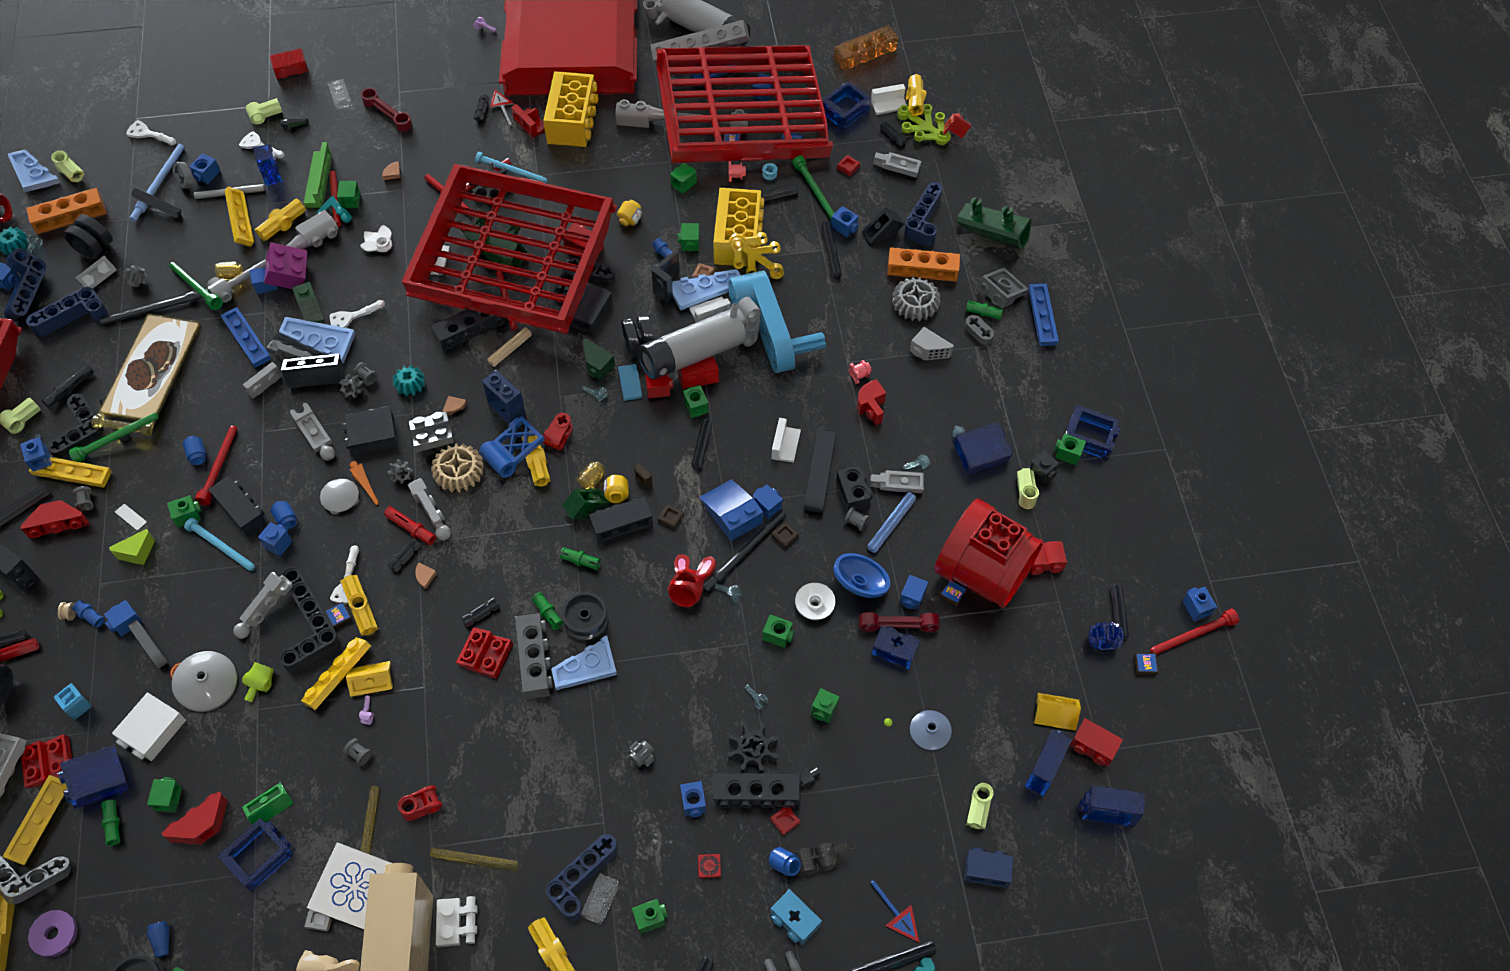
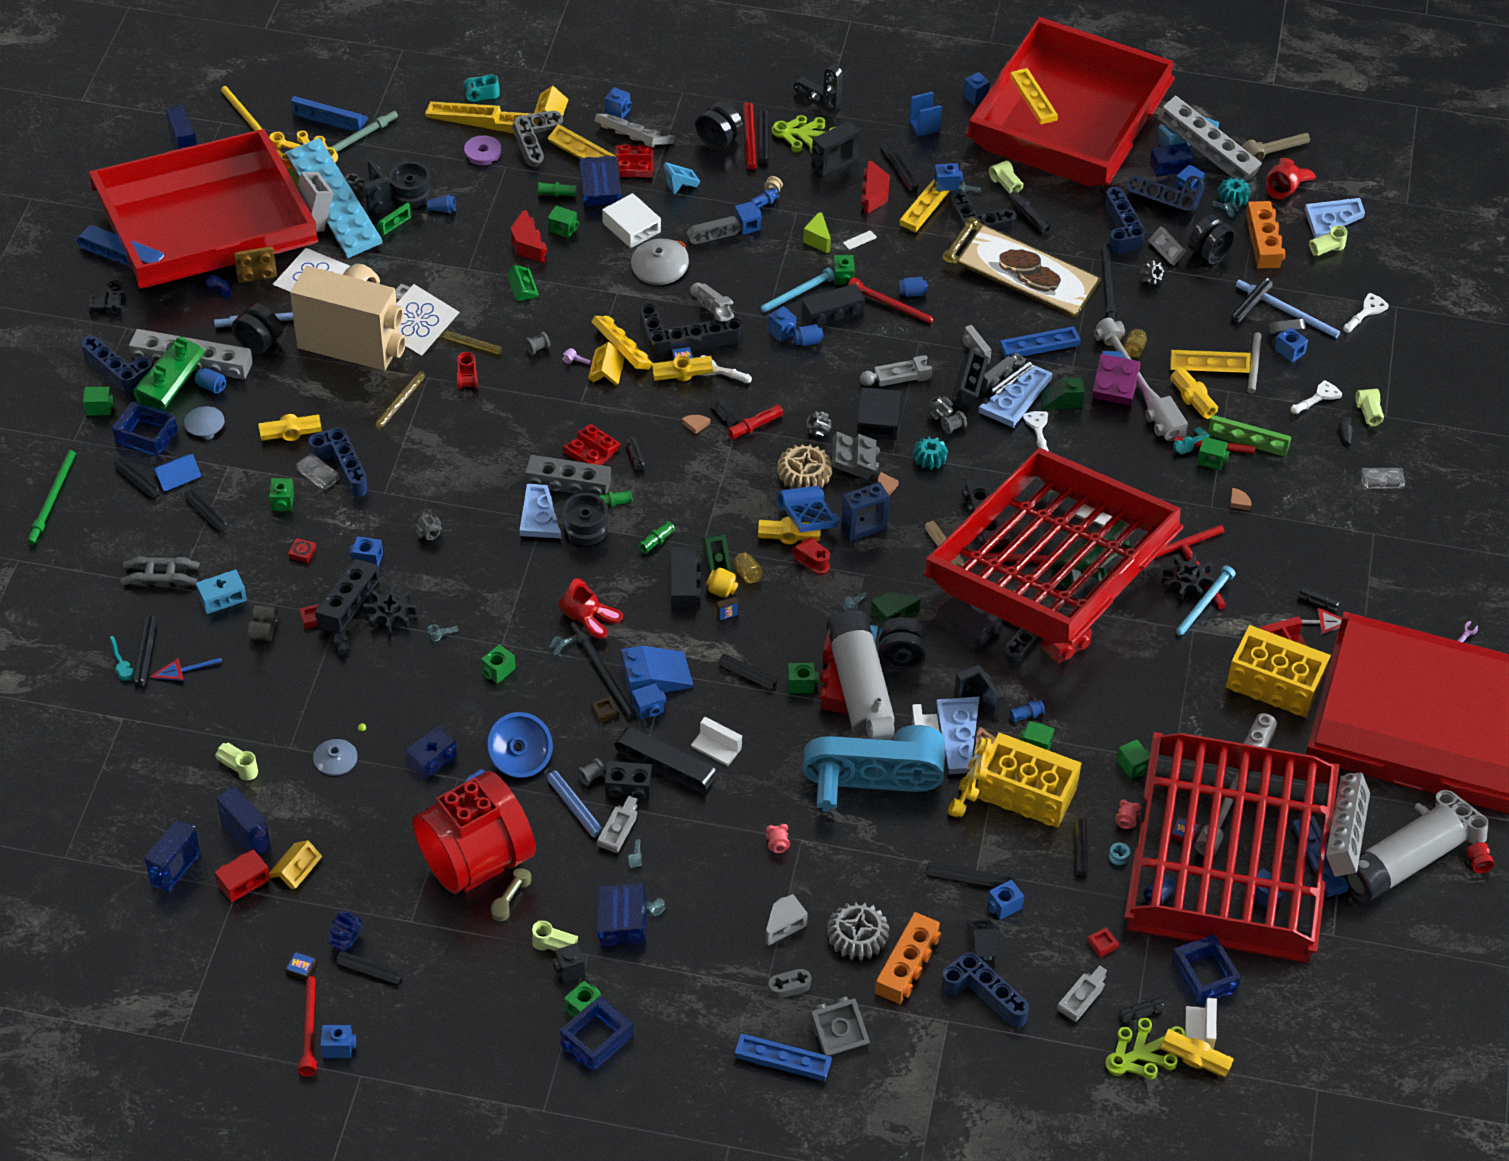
camera: 110 degrees right, 10 degrees down
(79, 453) = (943, 211): green piece -> none
(83, 499) = (883, 211): dark grey bush -> none
(212, 300) = (1091, 319): green piece -> none
(257, 680) = (643, 293): lime piece -> none
(267, 164) = (1272, 389): clear blue brick -> none
(268, 867) = (475, 253): clear blue window -> none
(288, 63) = (1442, 439): red brick -> none
(339, 495) = (815, 380): light grey dish -> none
(360, 476) = (830, 398): orange piece -> none
(377, 241) = (1137, 468): white plate -> none
(386, 109) = (1342, 512): dark red piece -> none
(421, 495) = (766, 437): light grey plate -> none
(449, 918) = (353, 376): white plate -> none
(629, 213) = (1095, 692): yellow head -> none
(670, 516) = (672, 622): dark brown tile -> none
(784, 861) = (271, 596): blue brick -> none
(800, 164) = (1117, 887): green piece -> none
(815, 593) = (513, 697): white dish -> none
(824, 705) = (400, 674): green brick -> none
(865, 48) = (1302, 998): clear orange brick -> none
(869, 399) = (735, 831): red brick -> none
(926, 622) = (468, 743): dark red piece -> none
(957, 125) = (1127, 1081): red bracket -> none
(984, 310) = (814, 997): green pin -> none
(988, 867) = (178, 744): dark blue brick -> none
(995, 224) = (935, 1053): dark green piece -> none
(1050, 558) = (463, 920): red brick -> none

